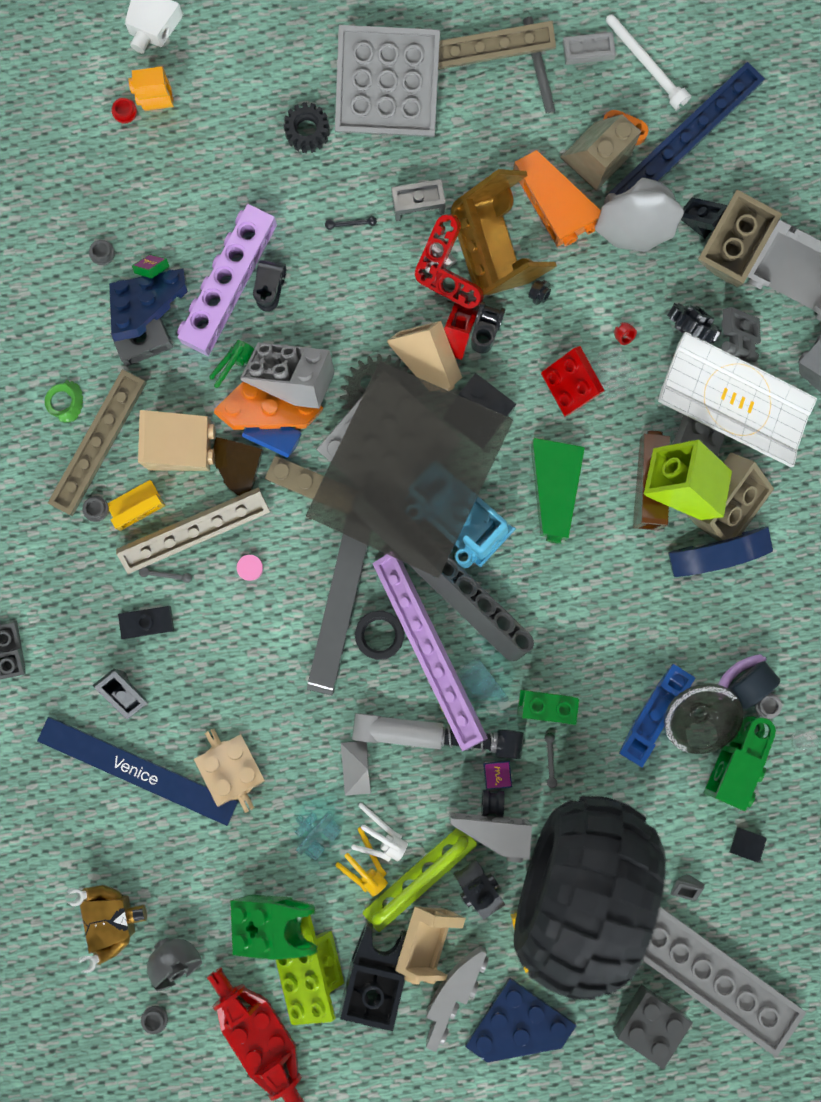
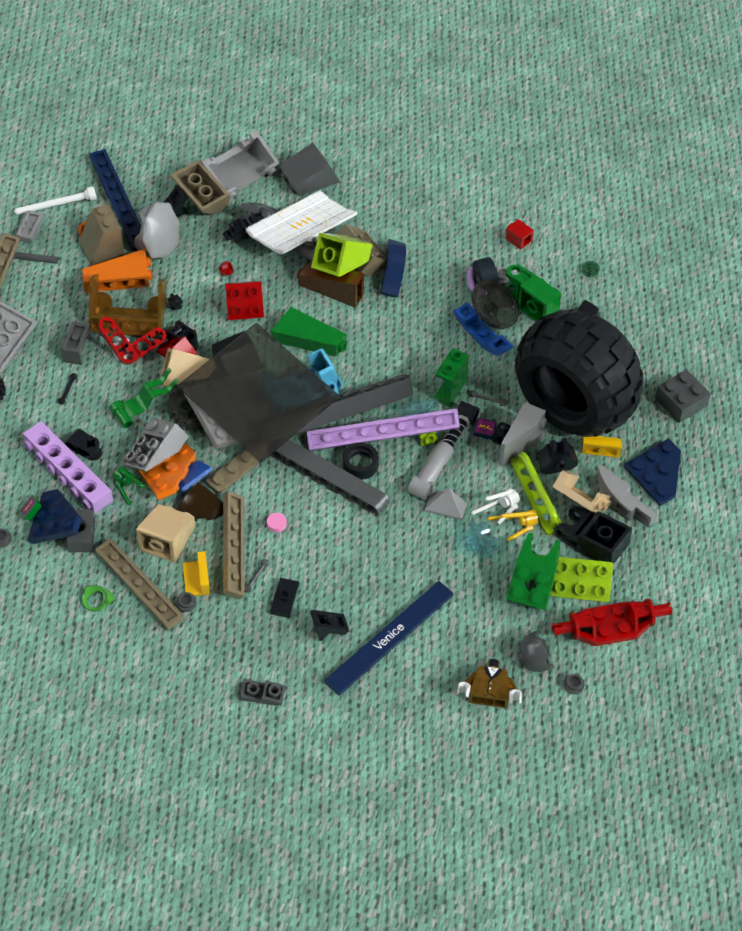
camera: 70 degrees left, 30 degrees down
(229, 770) = (414, 577): tan plate -> none
(355, 322) = (142, 401): none -> green flag
(722, 984) = (678, 350): light grey plate -> none

